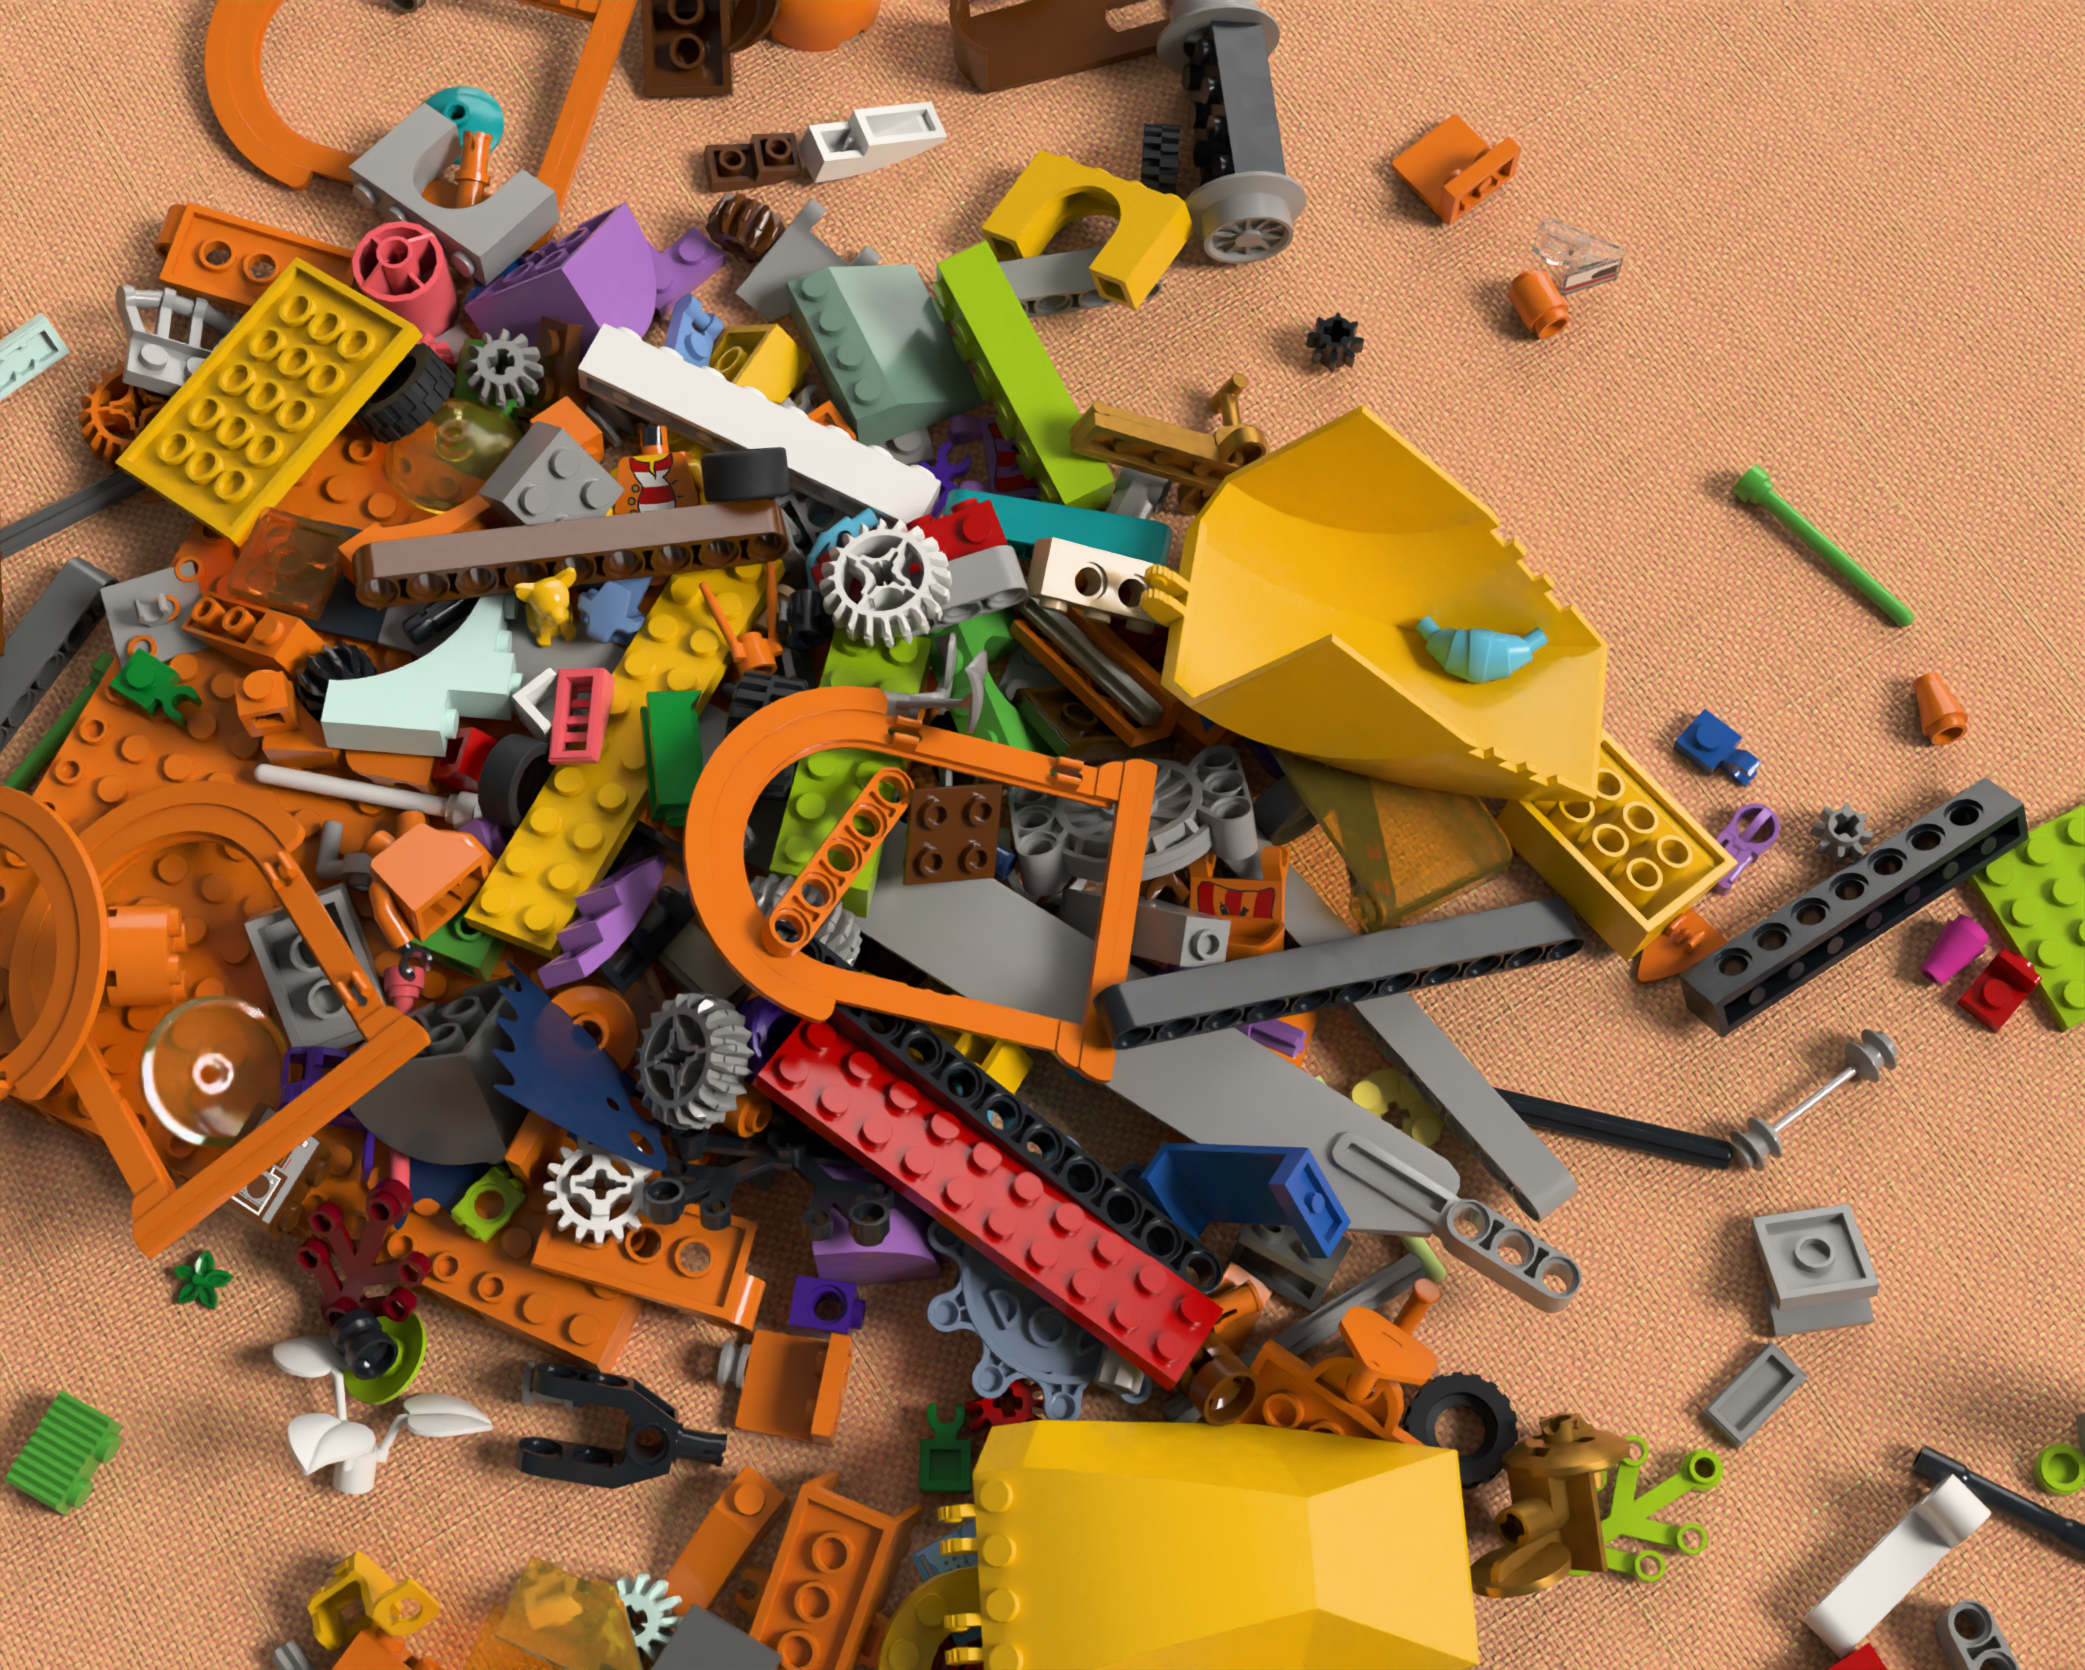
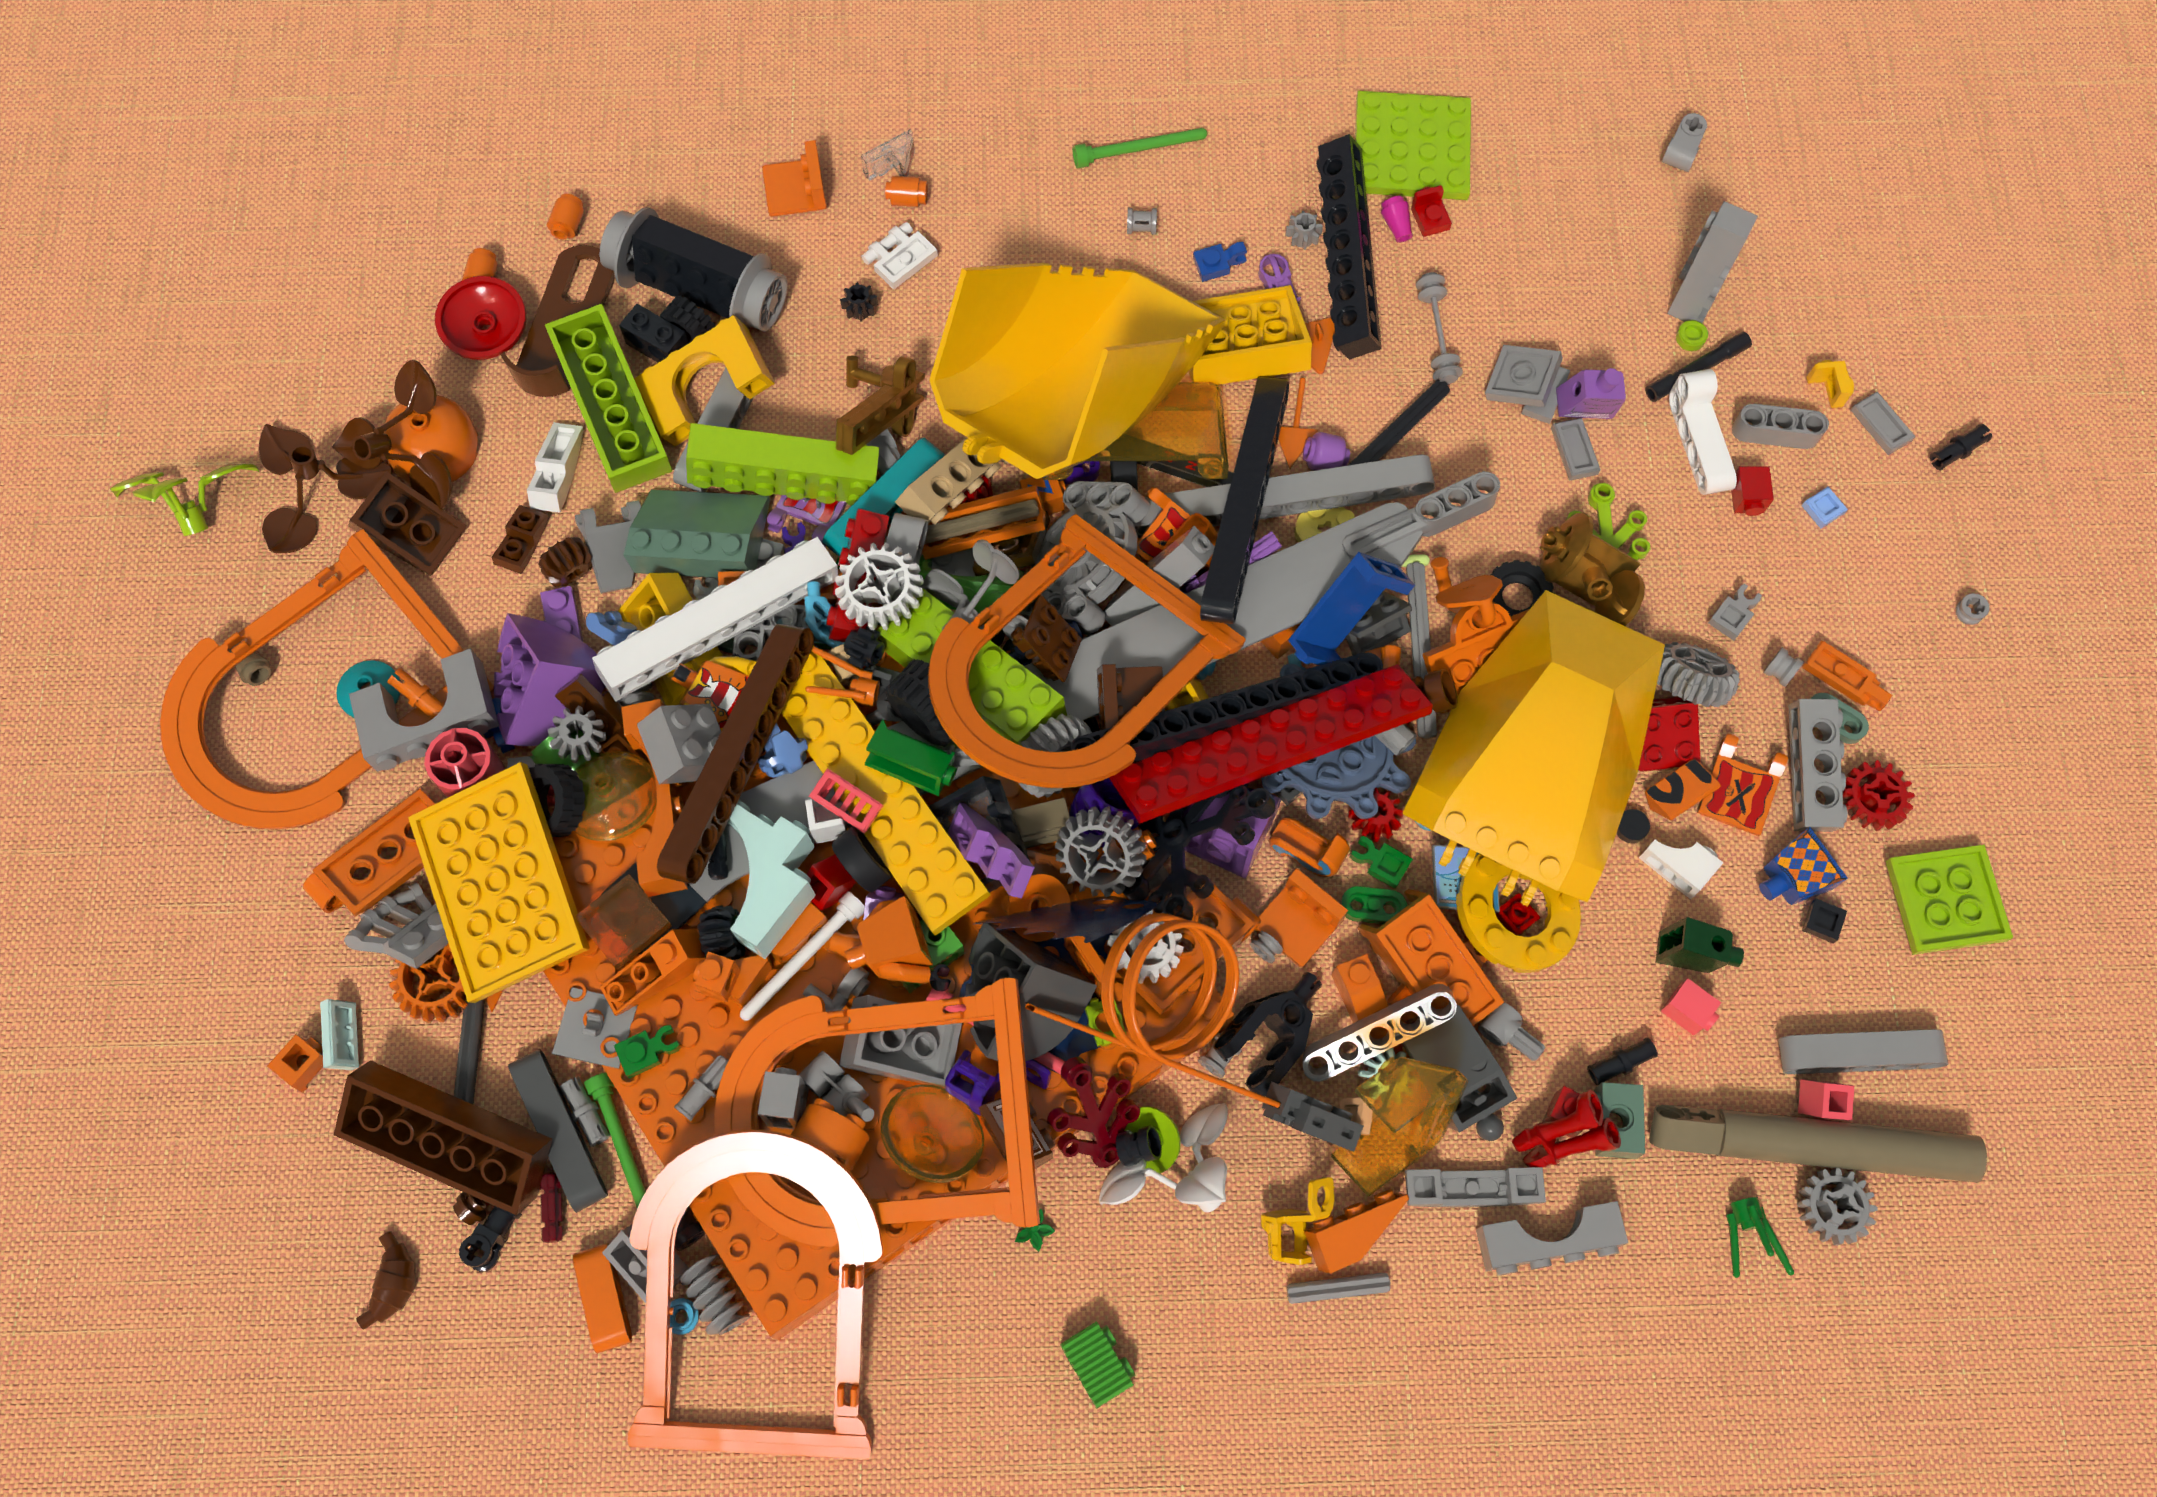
camera: 60 degrees left, 0 degrees up
(70, 675) = (584, 1111): none -> light grey pin
(135, 778) = (702, 1089): none -> light grey axle
(165, 870) = (782, 1098): none -> light grey brick
(222, 939) = (827, 1081): none -> light grey beam
(508, 1505) = (1280, 1103): none -> orange piece
(549, 607) = (761, 784): yellow animal -> none
(703, 1576) = (1369, 1046): none -> beam
(745, 474) = (749, 631): black tyre -> none
(810, 1293) = (1261, 893): dark purple brick -> none
(822, 875) = (1044, 709): orange beam -> none
(876, 1475) = (1372, 904): none -> green plate
(904, 1341) = (1309, 847): none -> orange animal
(937, 959) = (1122, 689): none -> reddish brown bracket
(993, 134) = (608, 398): none -> lime brick
(1120, 132) = (651, 334): none -> black brick
(1437, 360) = (903, 261): none -> white plate
(1478, 652) = (1099, 331): medium azure piece -> none
(1508, 1051) = (1325, 451): none -> medium lavender head
(1511, 1002) = (1294, 438): none -> orange piece
(1704, 616) = (1142, 221): none -> light grey bush
(1842, 1367) = (1592, 394): none -> medium lavender torso
(1939, 712) = (1267, 147): orange cone -> none

